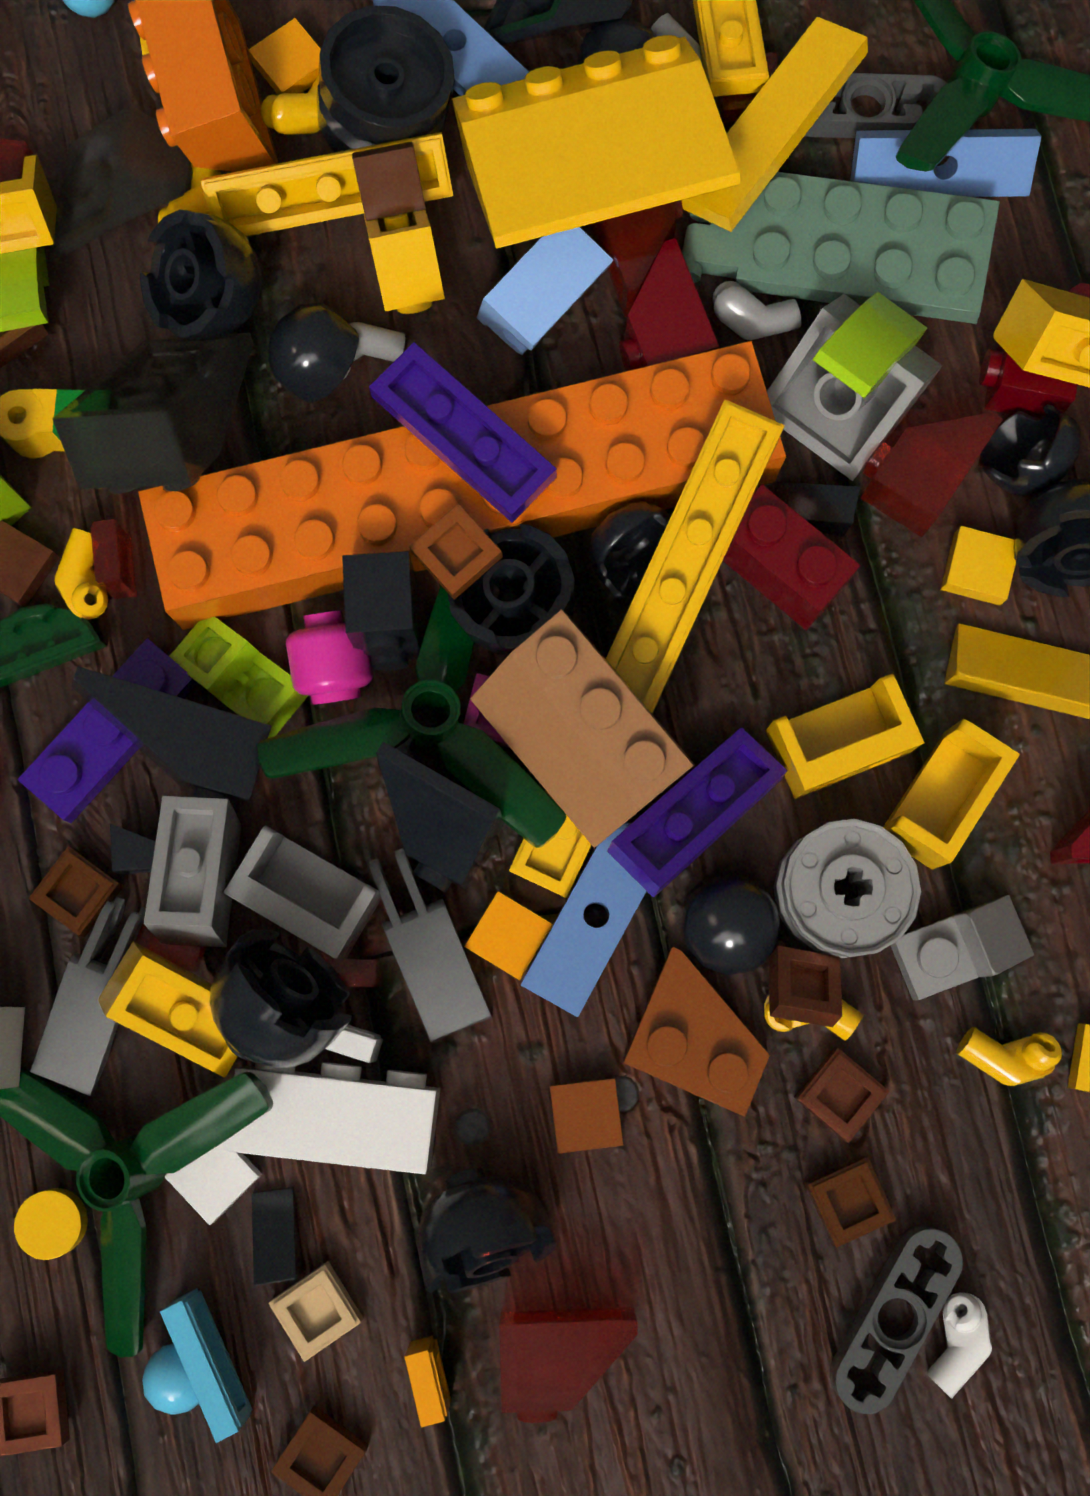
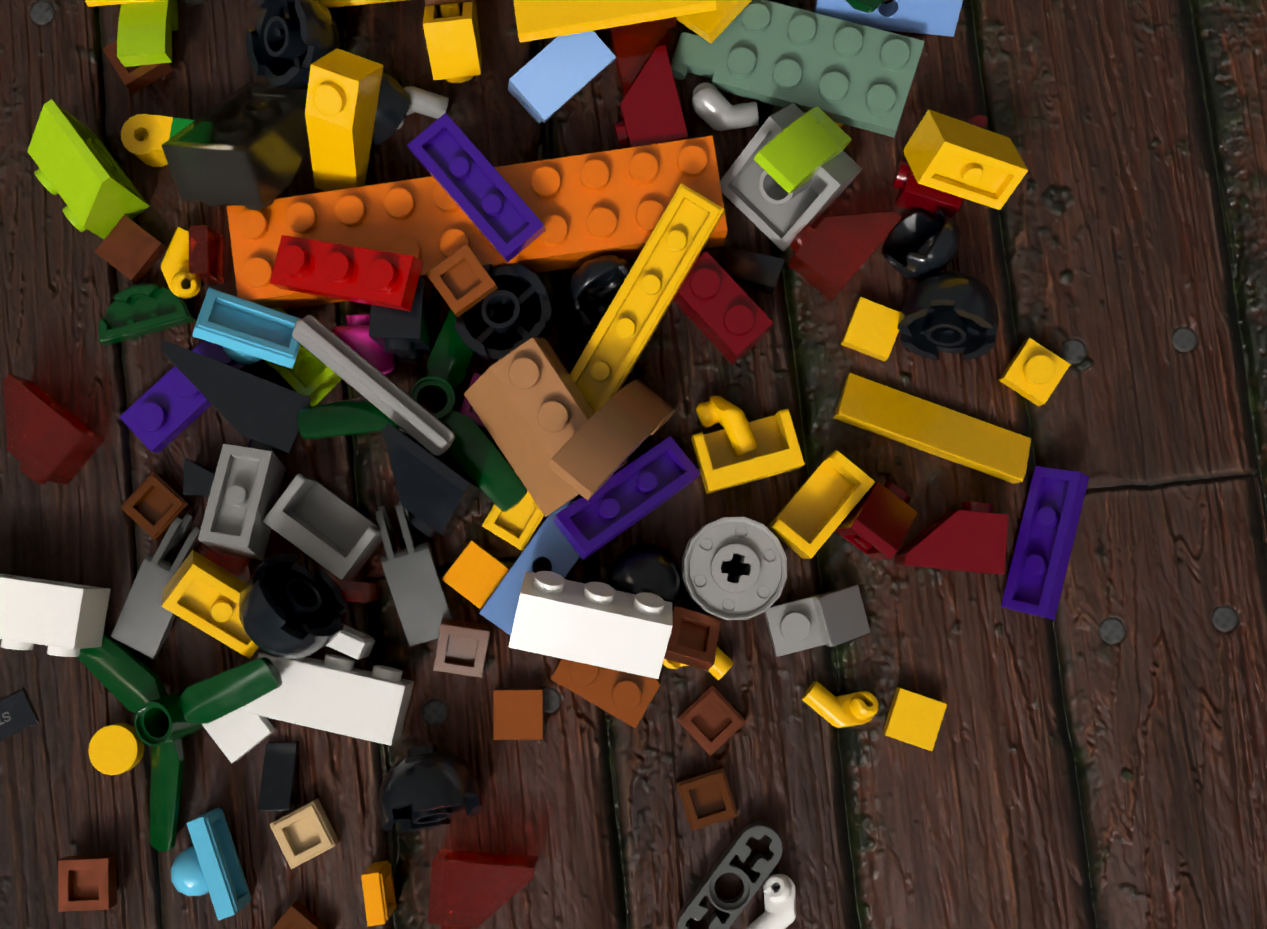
camera: 10 degrees right, 5 degrees up
(183, 645) = (247, 329): none -> medium azure tile
(277, 366) = (341, 118): none -> yellow slope
(308, 554) = (346, 272): none -> red plate
(354, 698) = (373, 385): none -> light grey axle
(501, 1034) = (461, 647): none -> reddish brown tile
(674, 732) = (609, 438): none -> medium nougat slope
(676, 979) = (592, 624): none -> white brick
(816, 696) = (732, 419): none -> yellow arm
(1030, 810) = (879, 521): none -> dark red slope

